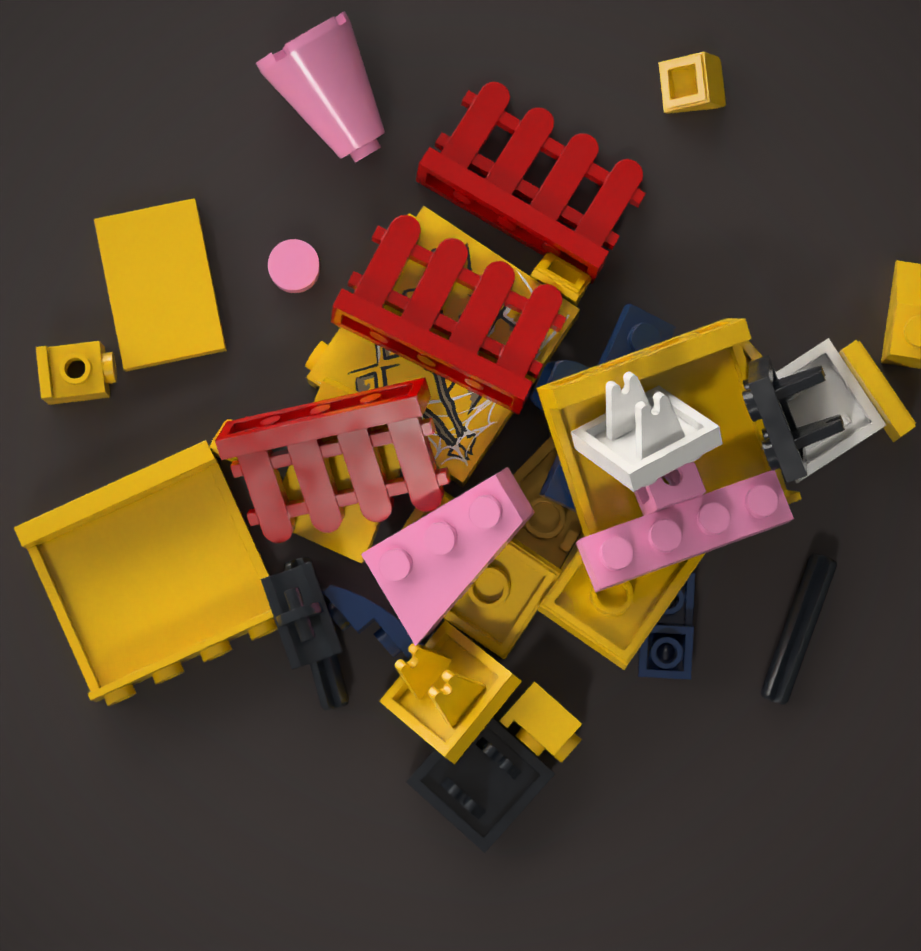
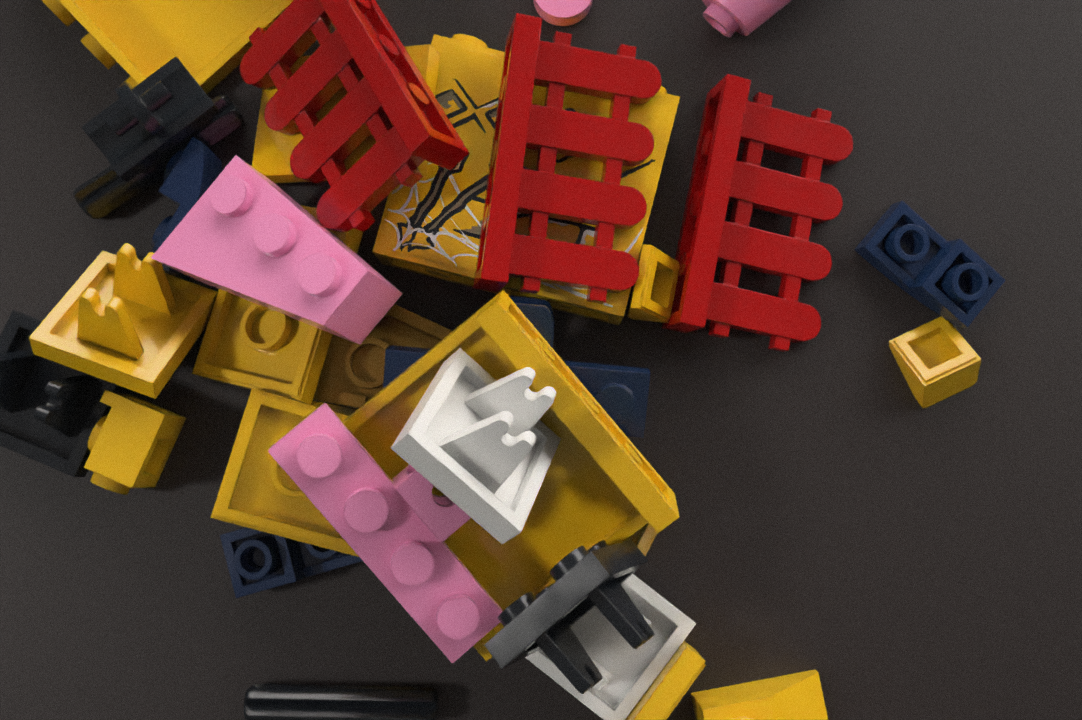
camera: 65 degrees right, 0 degrees up
(616, 60) = (929, 268): none -> dark blue slope

